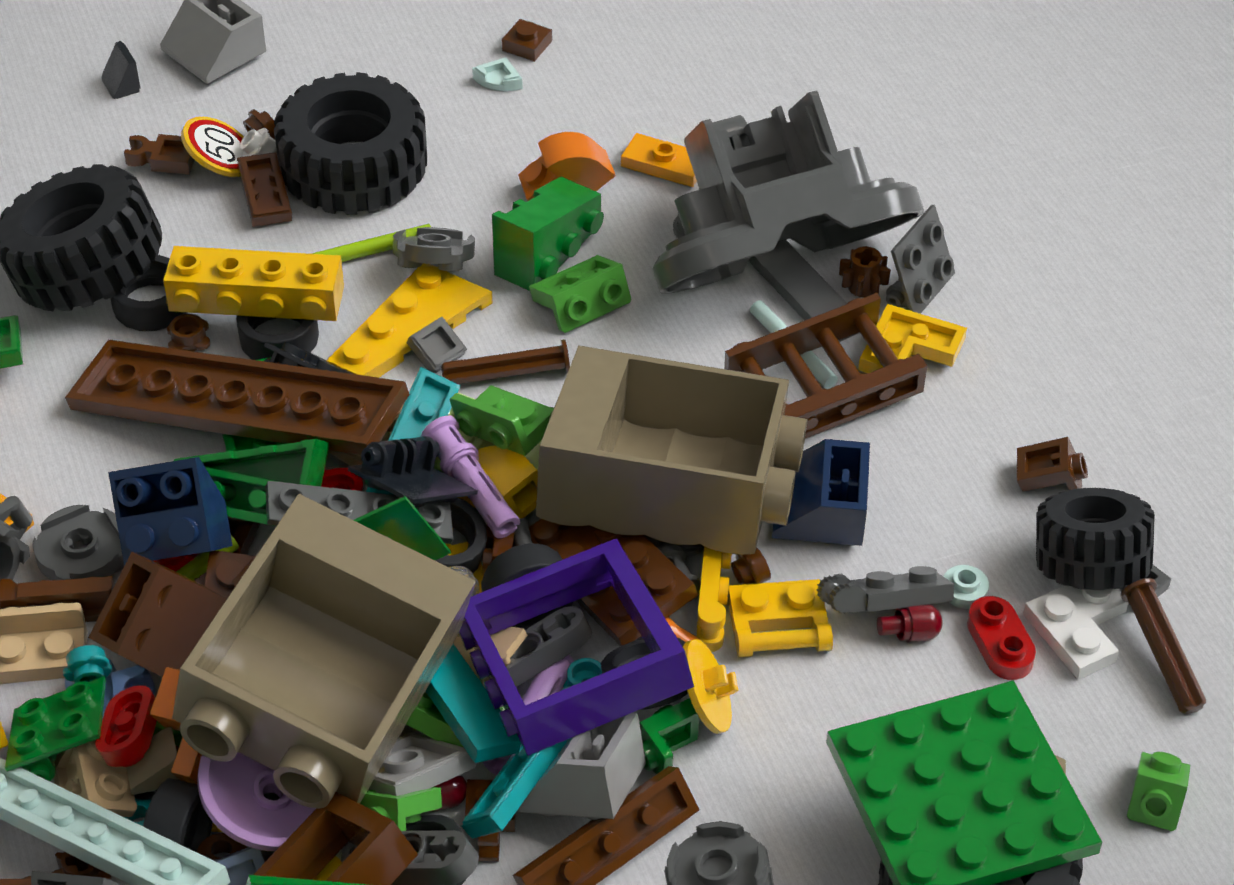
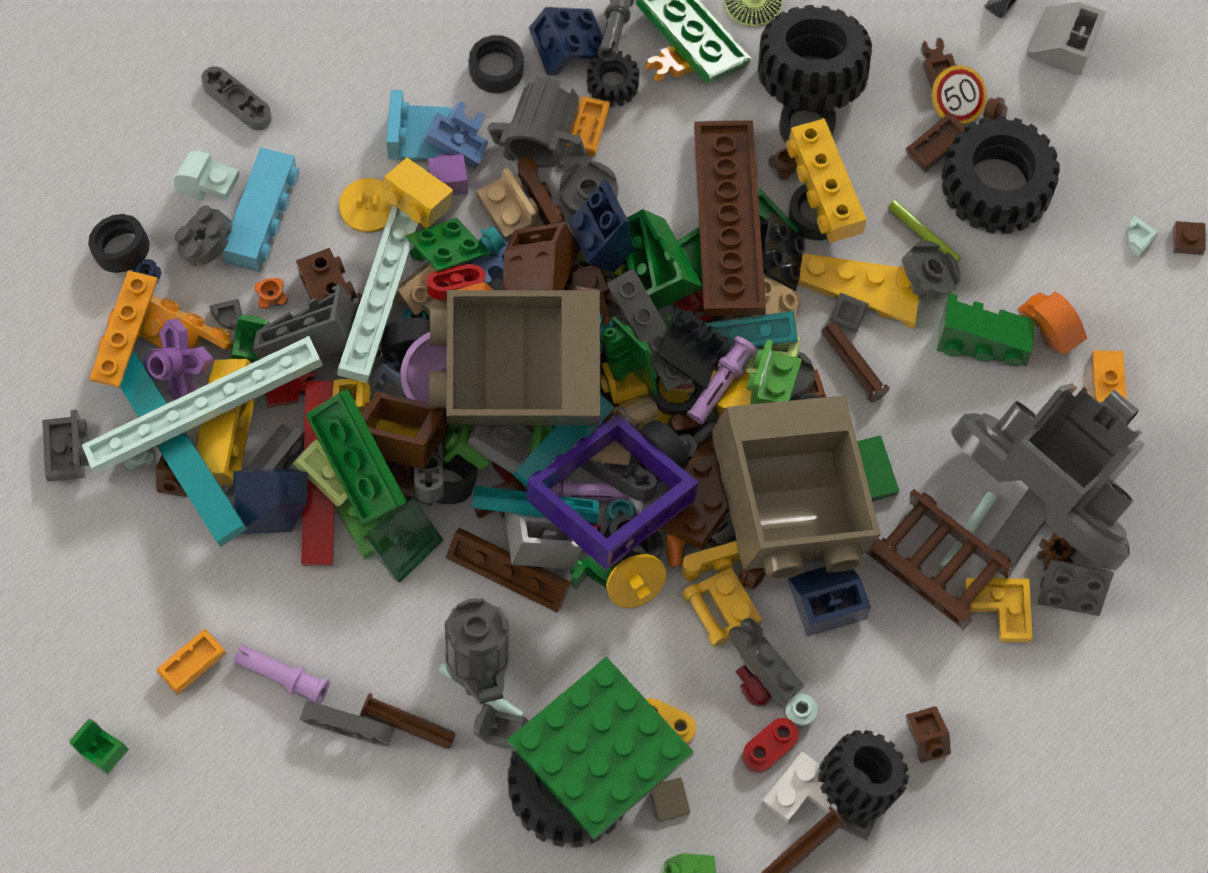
camera: 65 degrees right, 20 degrees up
(257, 143) = (971, 114): white plate -> none
(583, 292) = (944, 379): bright green bracket -> none

